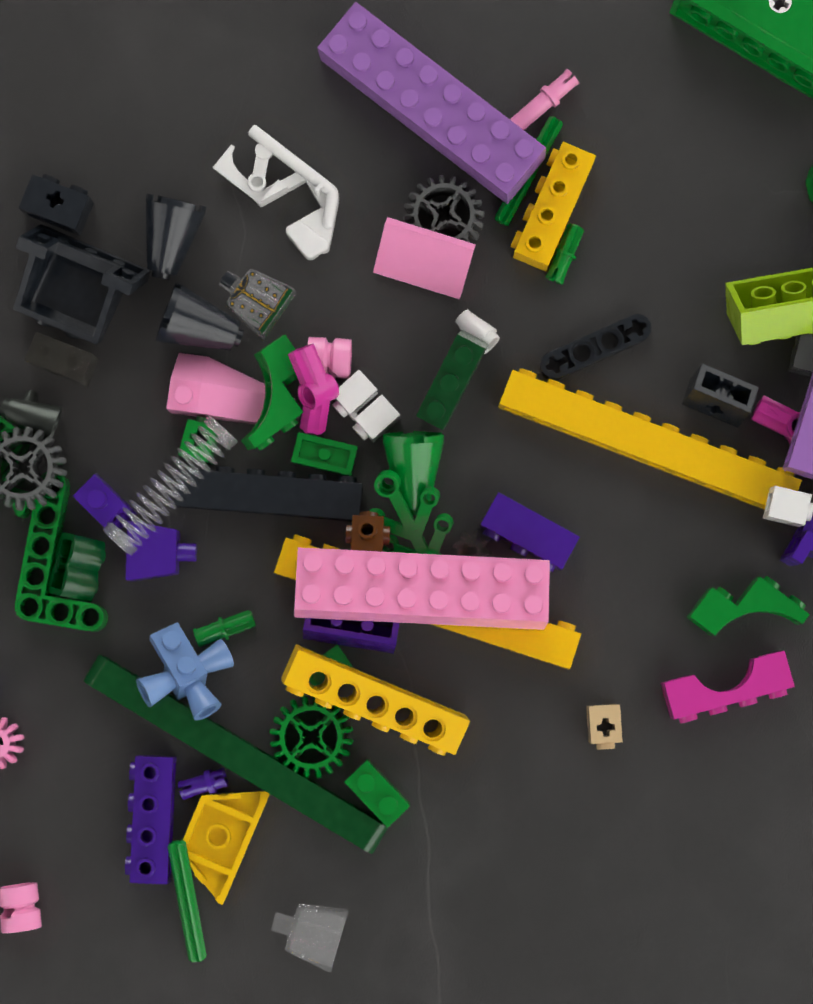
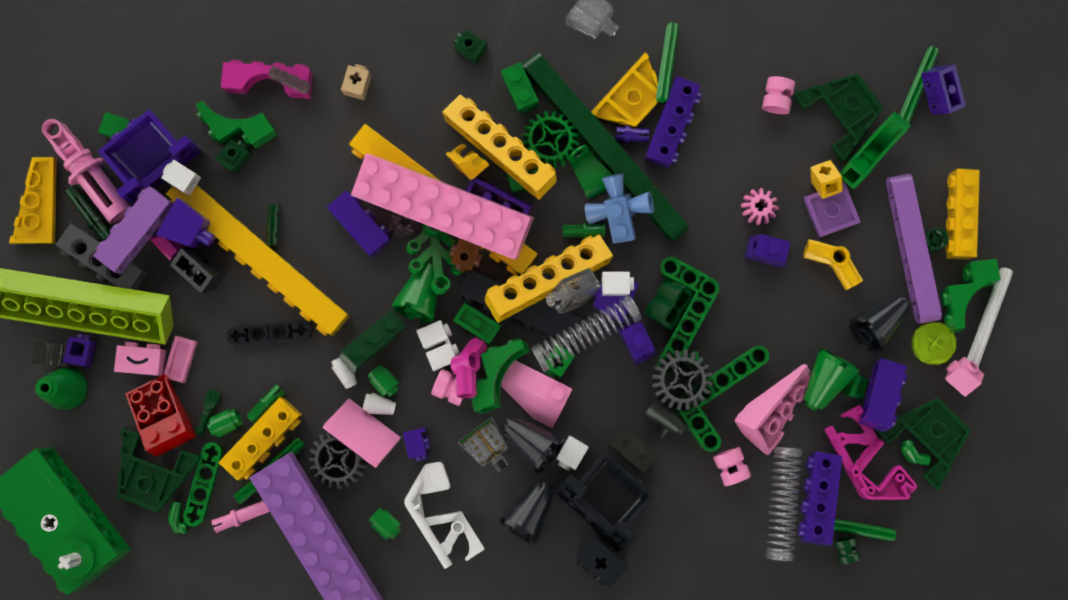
camera: 160 degrees left, 0 degrees up
(141, 327) = (571, 453): none -> white brick
(152, 566) = (617, 283): none -> white brick
(192, 600) = (504, 308): none -> yellow brick
(216, 527) = (566, 296): none -> clear torso
(243, 711) = (589, 171): none -> green piece
(348, 270) = (417, 444): none -> dark purple brick
(353, 154) = (385, 524): none -> green brick
(410, 664) = (468, 165): none -> yellow hinge
(417, 303) = (378, 405): none -> white cone
(420, 335) = (383, 381): none -> green brick
(456, 824) = (472, 53): none -> dark green brick
(607, 125) = (200, 482): none -> green beam
(609, 210) = (224, 422): none -> green brick
(626, 66) = (174, 519): none -> green arm
(639, 230) = (210, 403): none -> dark green piece
(645, 491) = (273, 223): none -> dark green axle
(681, 101) = (147, 482): none -> dark green wing
(693, 692) = (289, 79): none -> clear smoke axle
(697, 190) = (159, 416): none -> red slope
(700, 273) = (180, 359): none -> bright pink tile
(732, 552) = (234, 163): none -> dark green brick
(751, 253) = (139, 359): none -> bright pink brick
(755, 443) = (186, 226): none -> dark purple torso

